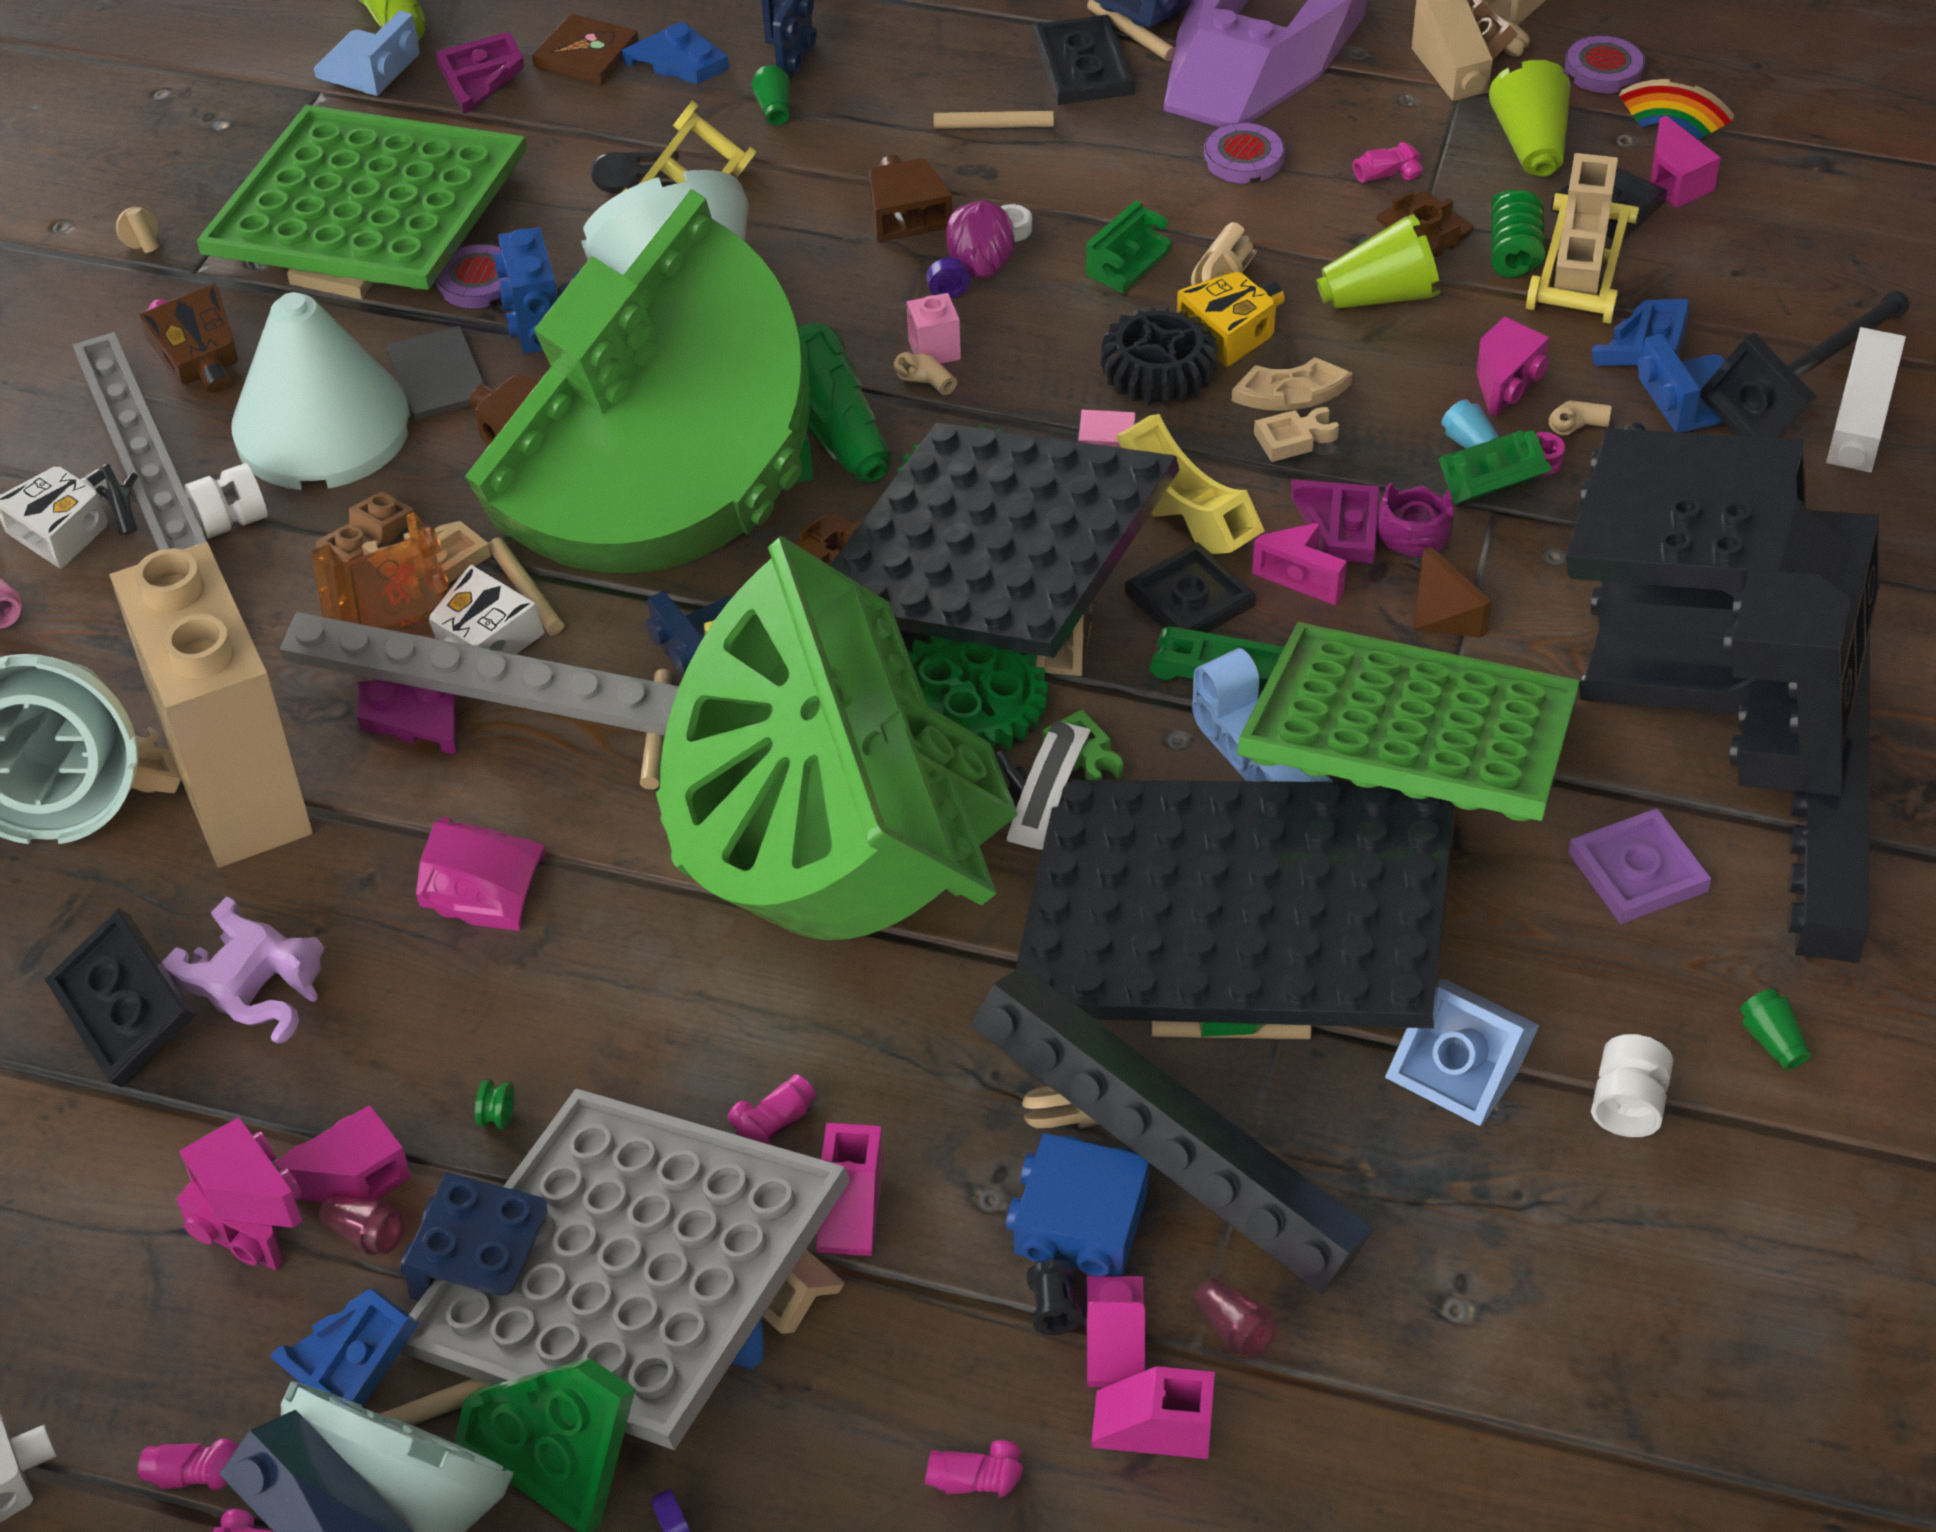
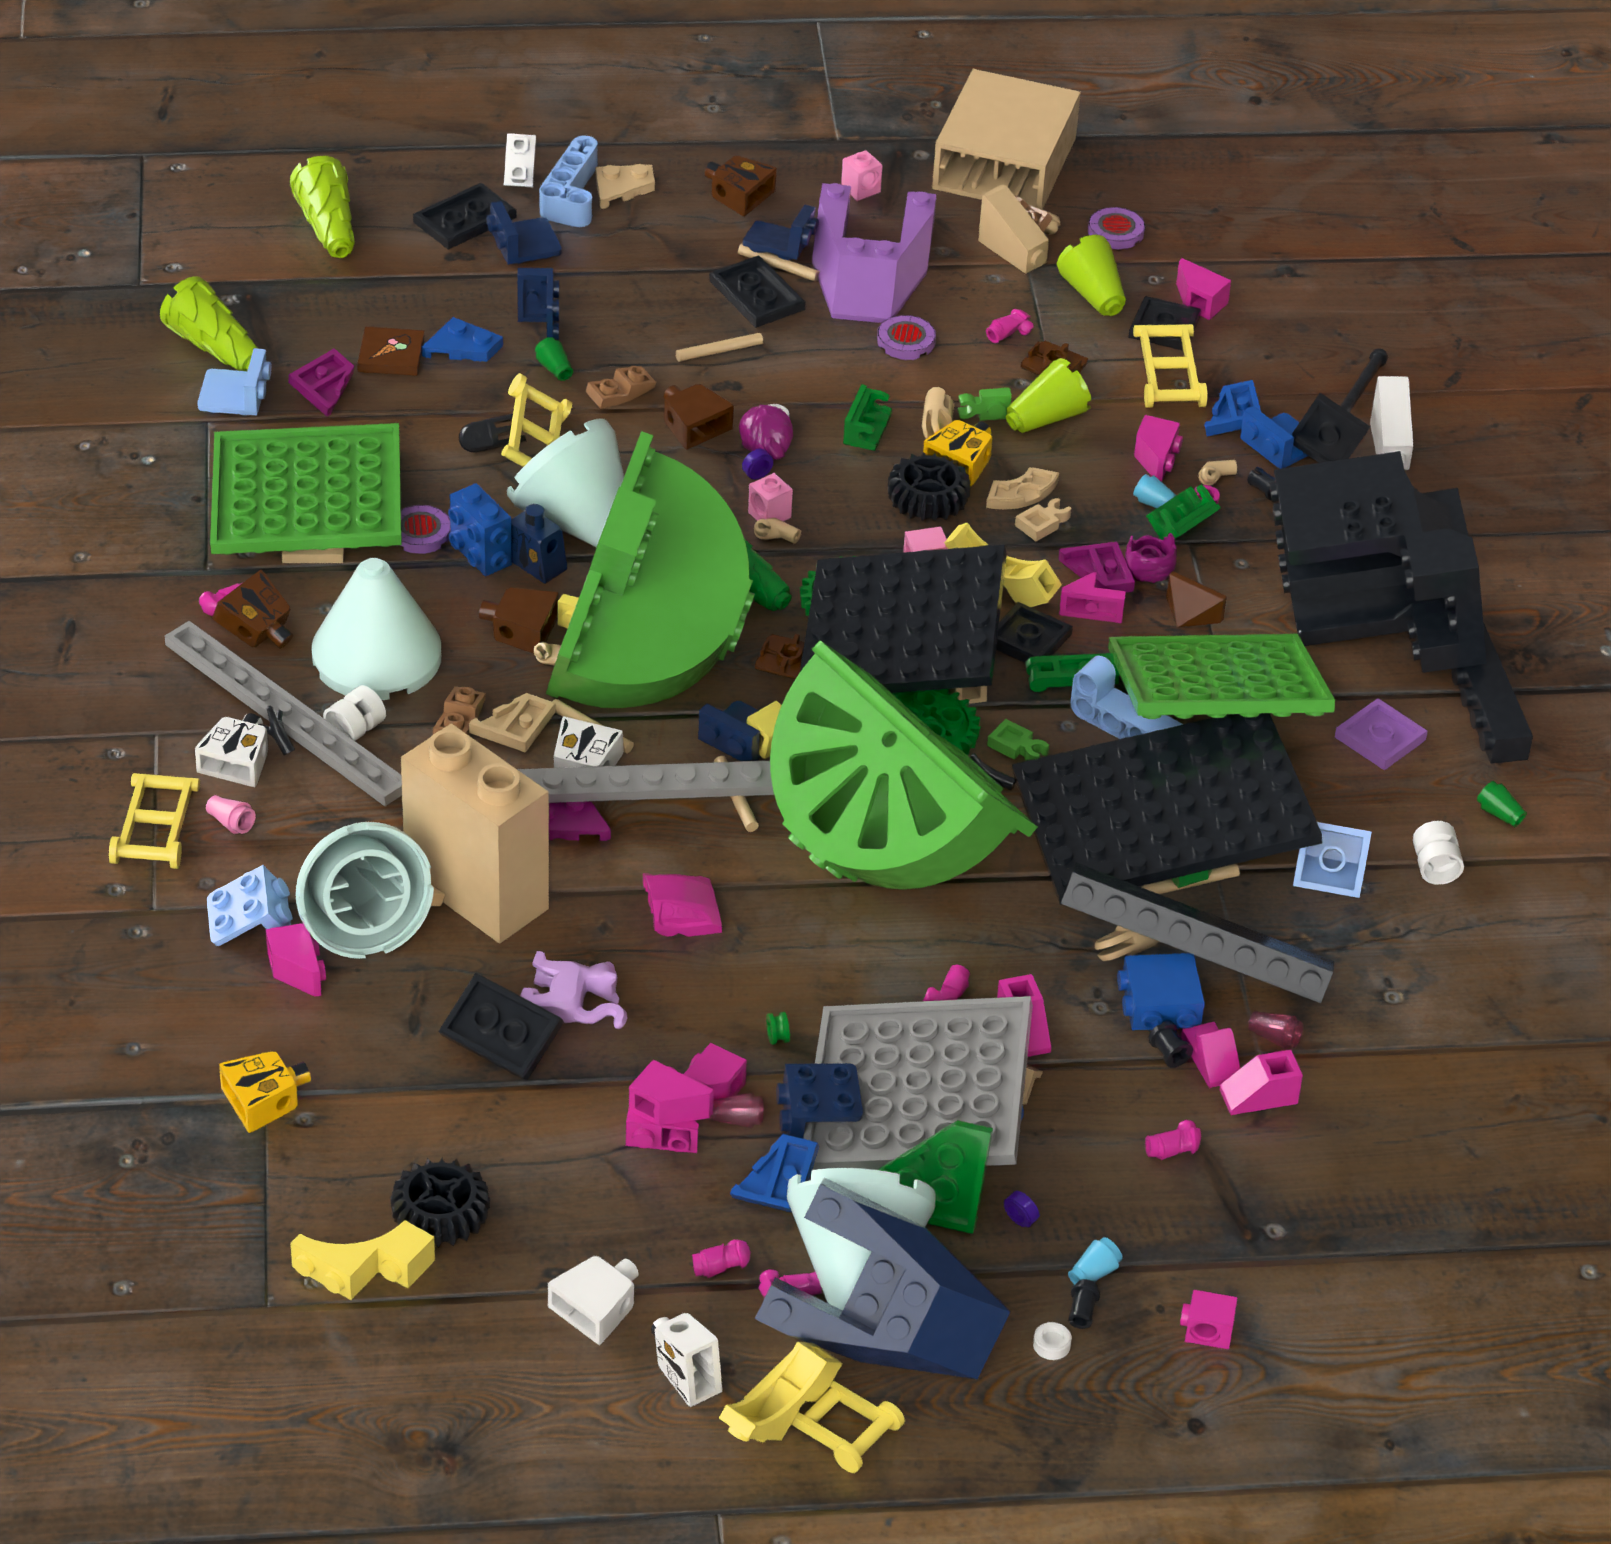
camera: 25 degrees left, 5 degrees down
(138, 229) = (149, 547): tan plate -> none
(386, 585) = (517, 734): clear orange panel -> none
(435, 371) = (440, 600): dark grey piece -> none
(849, 145) = (625, 386): none -> medium nougat slope
(1046, 783) = (1008, 763): sticker -> none
(1301, 260) = (989, 405): none -> bright green plate
(1517, 232) = (1120, 357): green piece -> none
(1585, 223) = (1172, 357): tan arch -> none
(1687, 106) = (1172, 247): tile -> none

